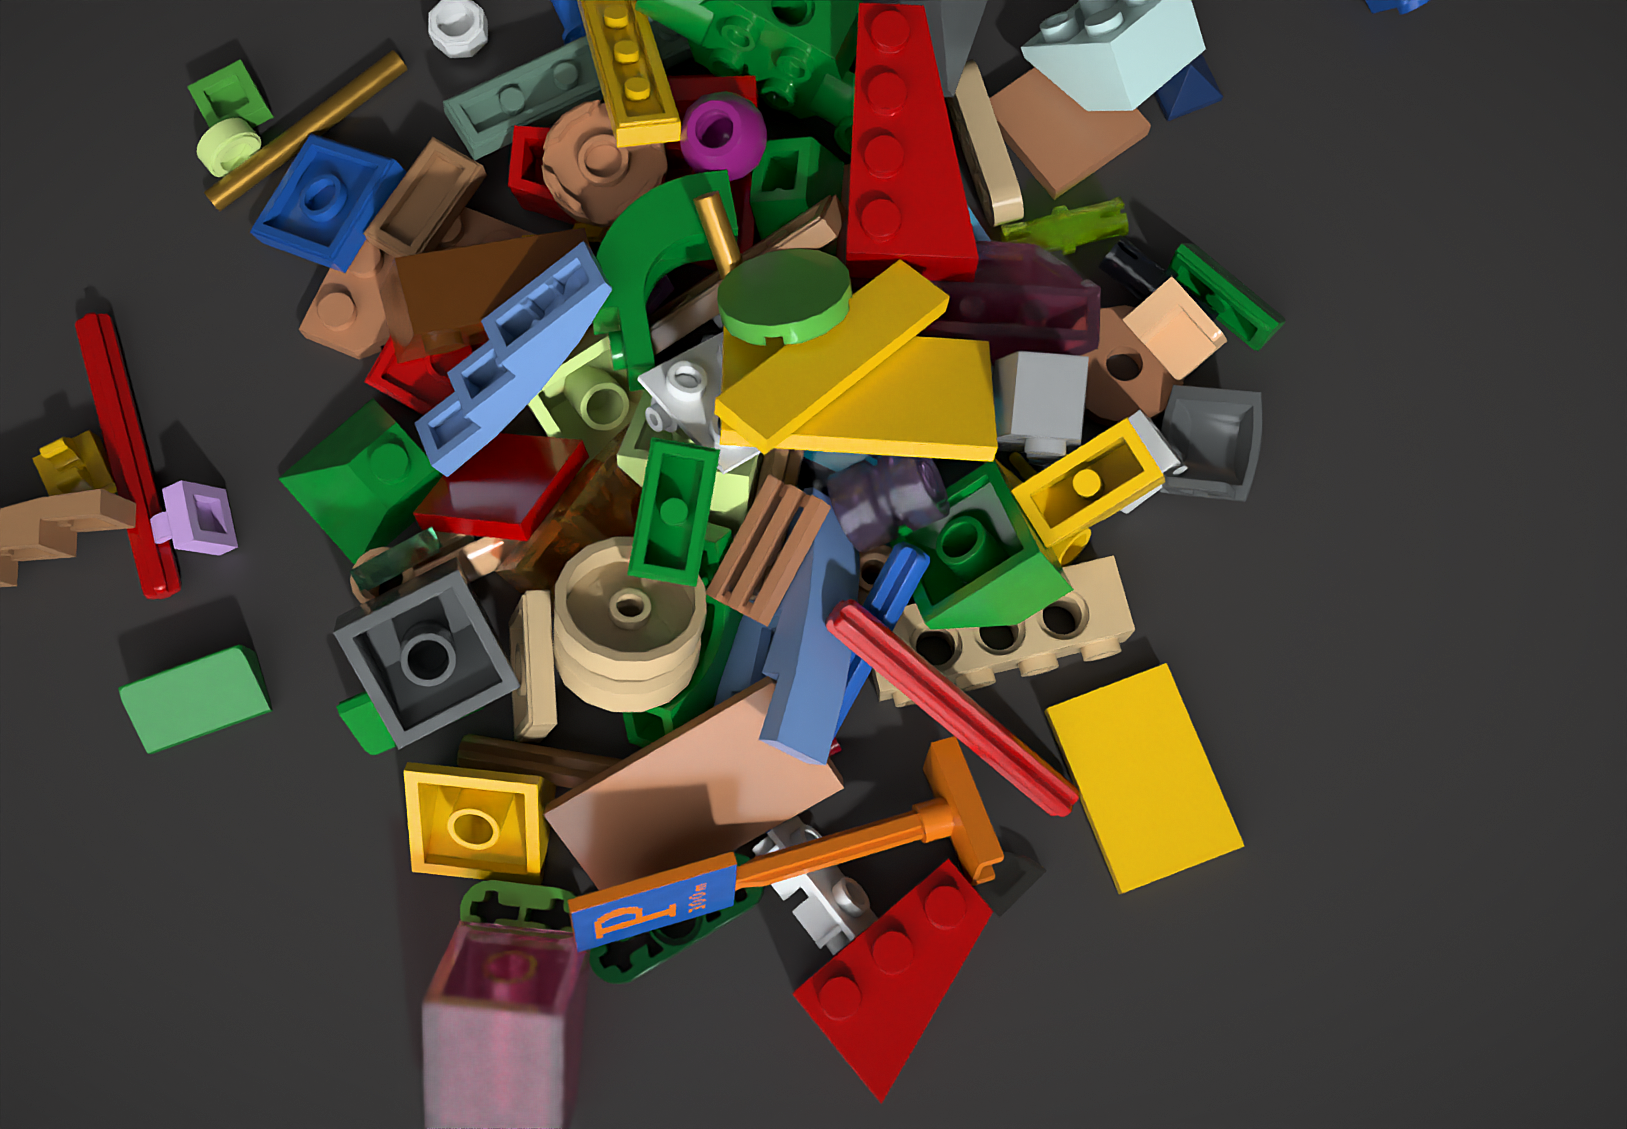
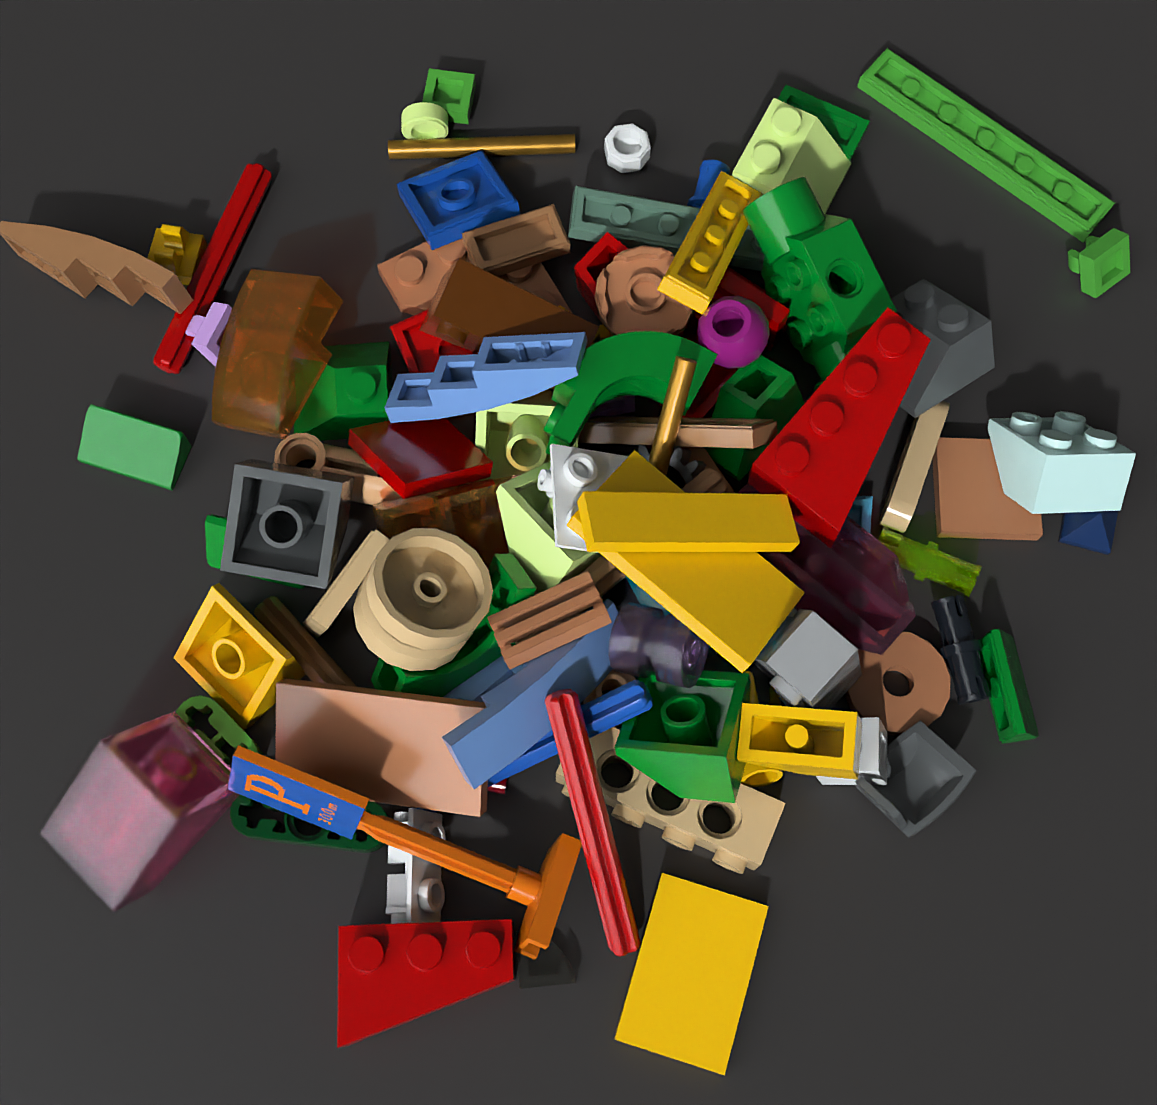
camera: 30 degrees right, 5 degrees down
(266, 494) = (272, 351): none -> clear orange slope
(396, 559) = (316, 450): clear green tile -> none
(673, 512) = (503, 547): green slope -> none
(785, 295) = (687, 461): bright green tile -> none
(1175, 329) = (948, 682): light nougat panel -> none

